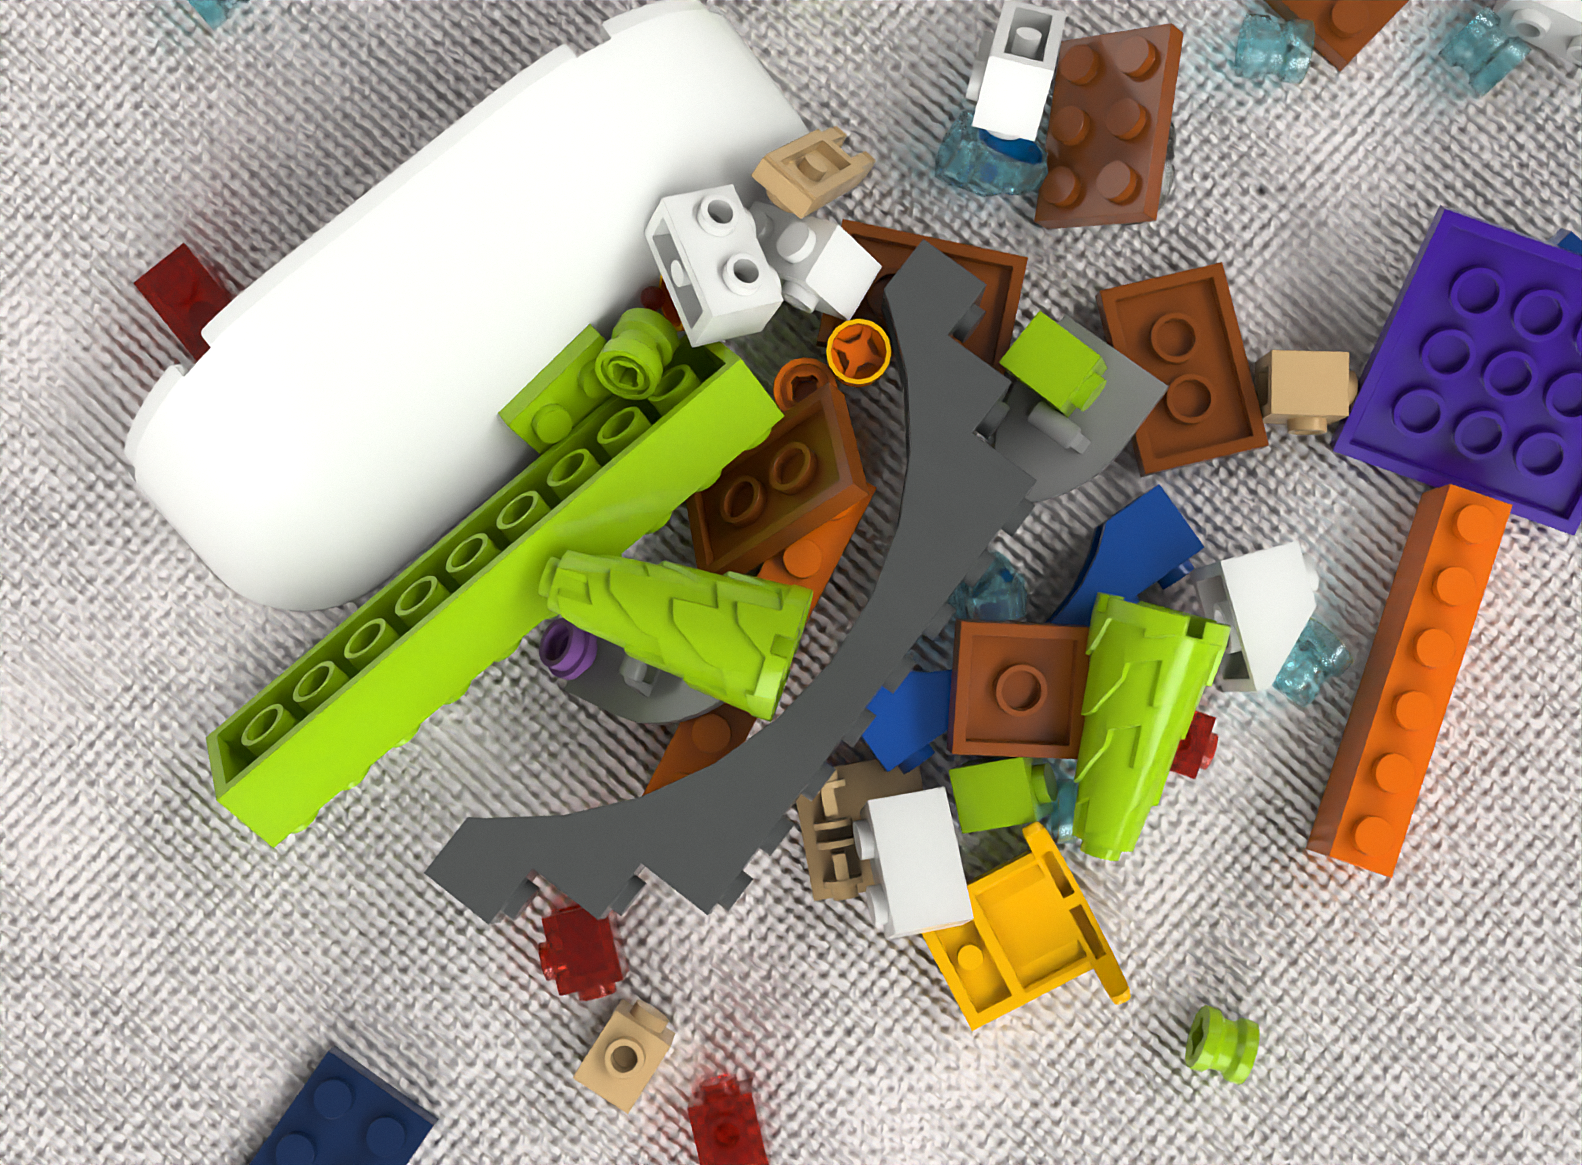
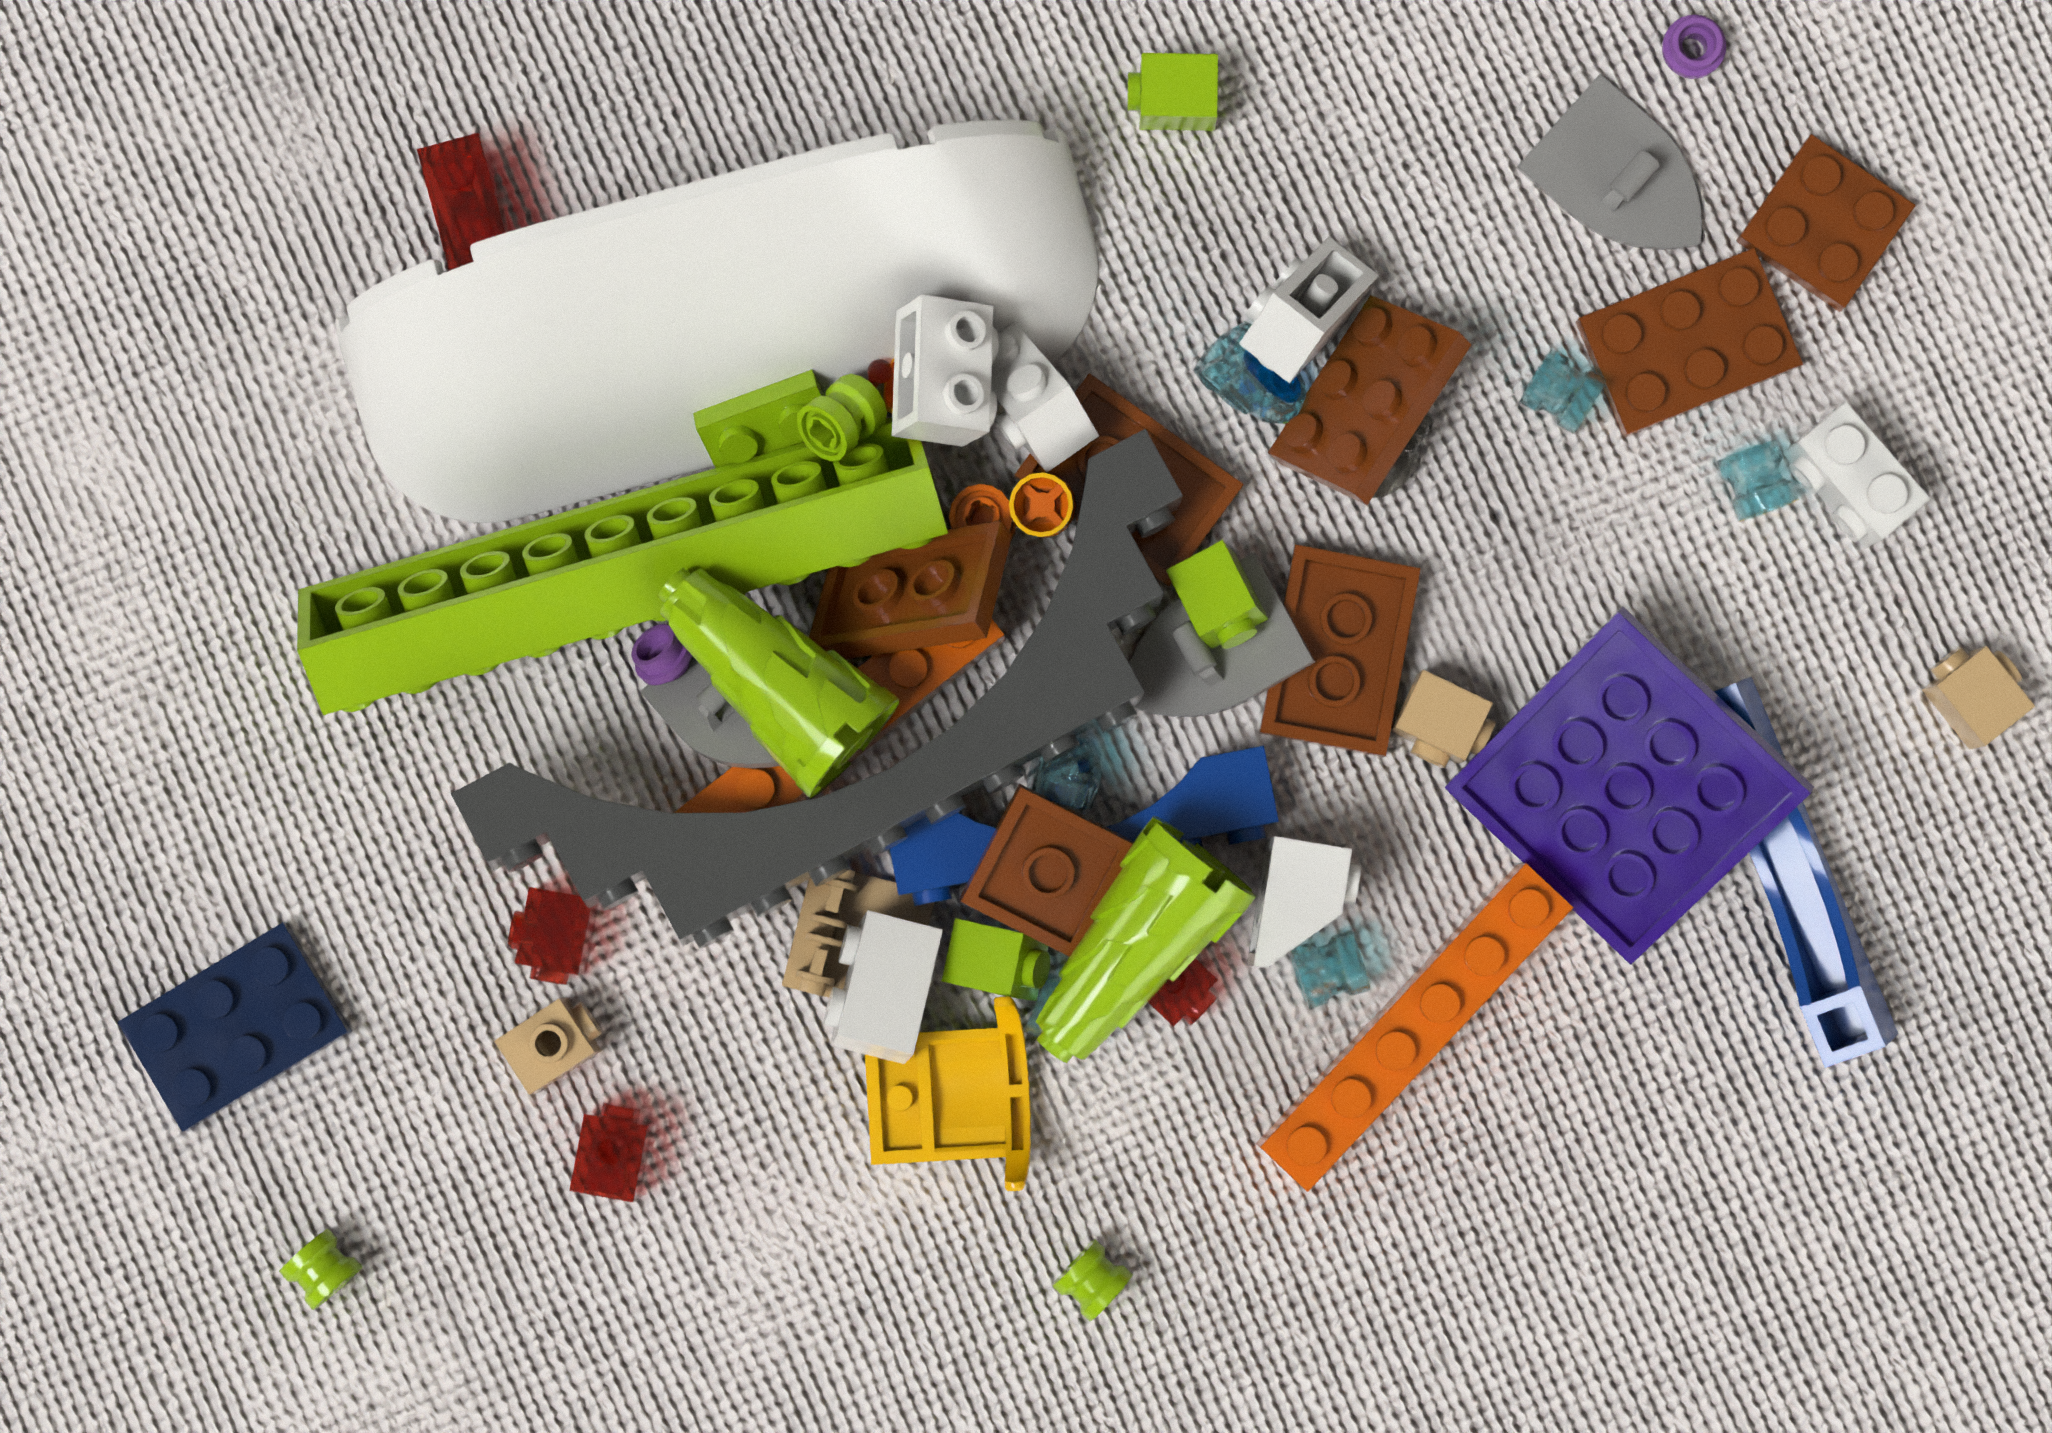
camera: 25 degrees right, 0 degrees up
(811, 171) = (1075, 321): tan hinge -> none

